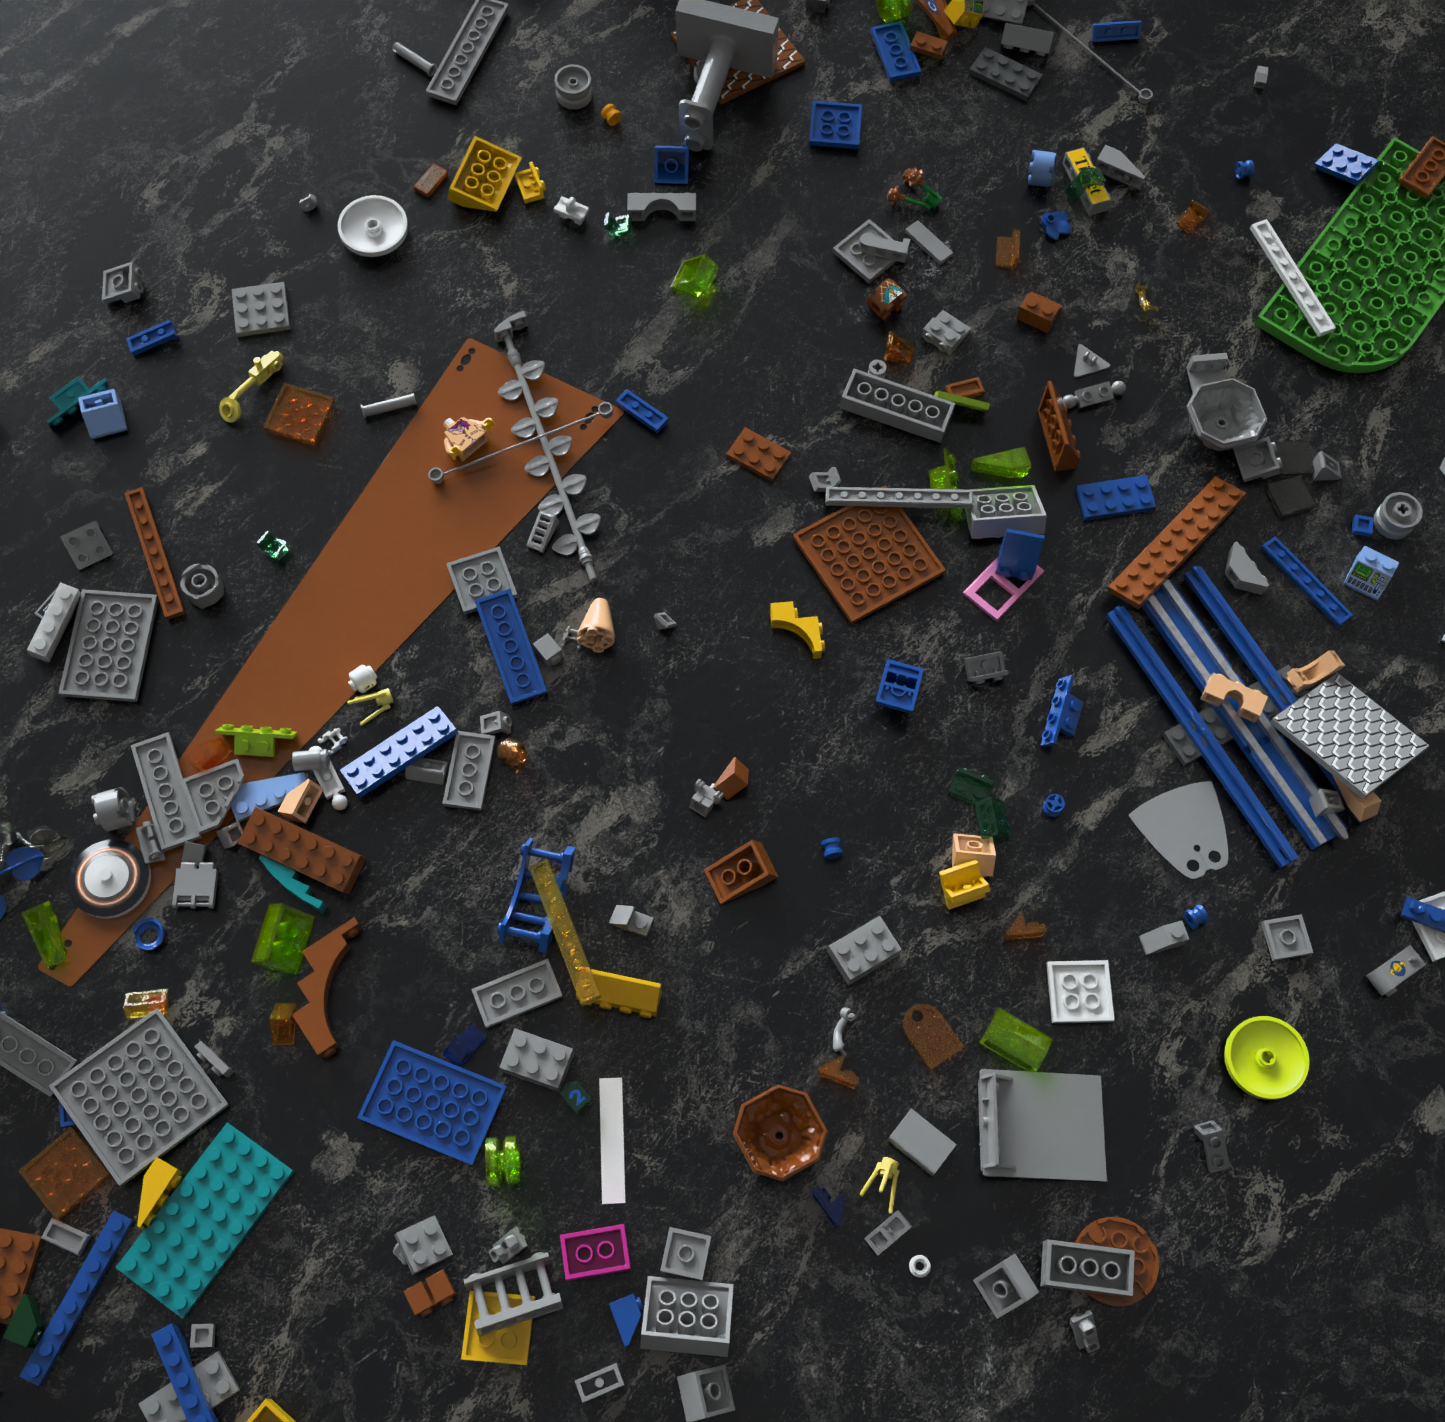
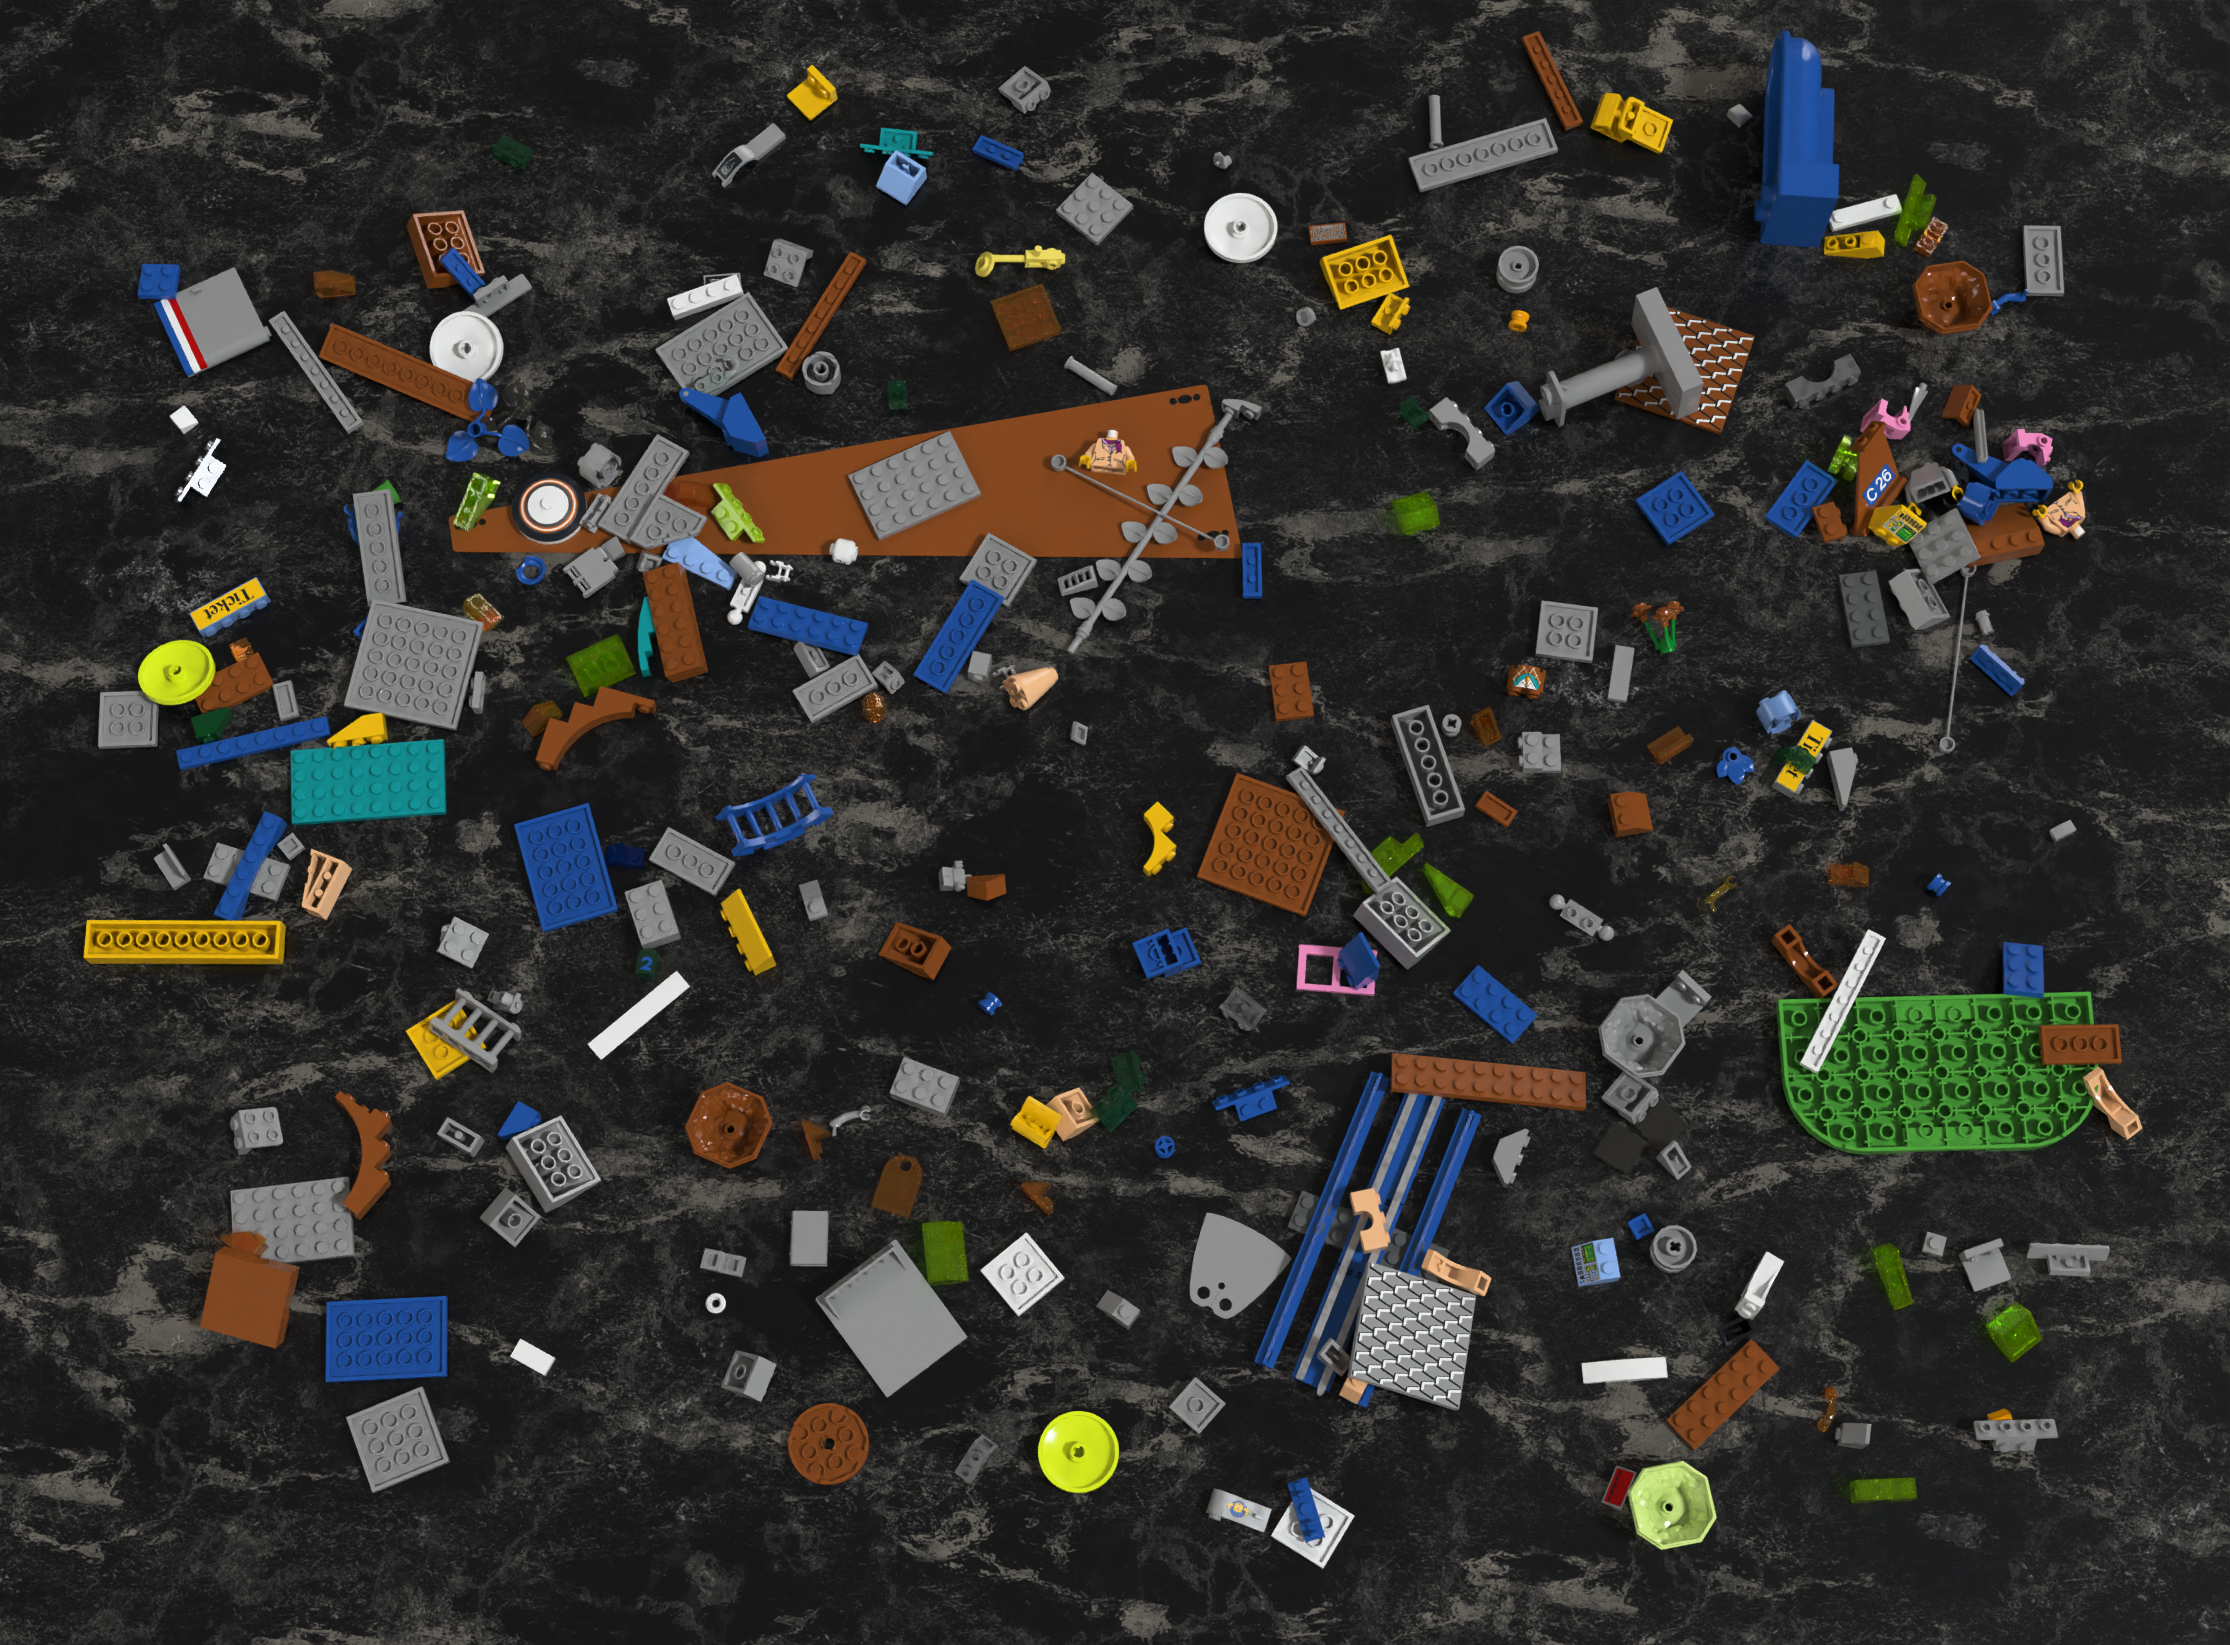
camera: 55 degrees right, 5 degrees up
(64, 1173) = (325, 661): clear orange plate -> none
(177, 673) = (730, 415): none -> blue slope
(264, 1331) = (324, 883): none -> light nougat wedge
(301, 801) = (711, 589): light nougat slope -> none
(356, 590) = (914, 485): none -> light grey plate
(382, 698) = (840, 578): light yellow plant -> none
(427, 1295) = (438, 976): dark orange piece -> none
(480, 237) = (1305, 316): none -> light grey tile
(502, 1160) = (560, 948): clear neon green wheel -> none
(565, 932) = (757, 856): clear yellow plate -> none
(595, 1252) = (547, 1064): dark pink brick -> none
(685, 1253) = (596, 1129): light grey plate -> none
(832, 1210) = (707, 1209): clear blue slope -> none
(884, 247) = (1575, 643): light grey leg -> none
(887, 1169) = (768, 1227): light yellow plant -> none
(963, 401) = (1477, 813): lime tile -> none
(1058, 430) = (1516, 911): dark orange slope -> none
(1075, 15) = (1984, 622): none -> light grey pin
(1085, 1331) = (757, 1455): light grey hips -> none
(1087, 1268) = (801, 1421): light grey brick -> none
(1088, 362) = (1613, 891): light grey piece -> none
(1196, 916) = (1157, 1322): blue wheel -> none
(1260, 285) = (1793, 950): none -> dark orange arch
(1306, 581) = (1545, 1215): blue tile -> none

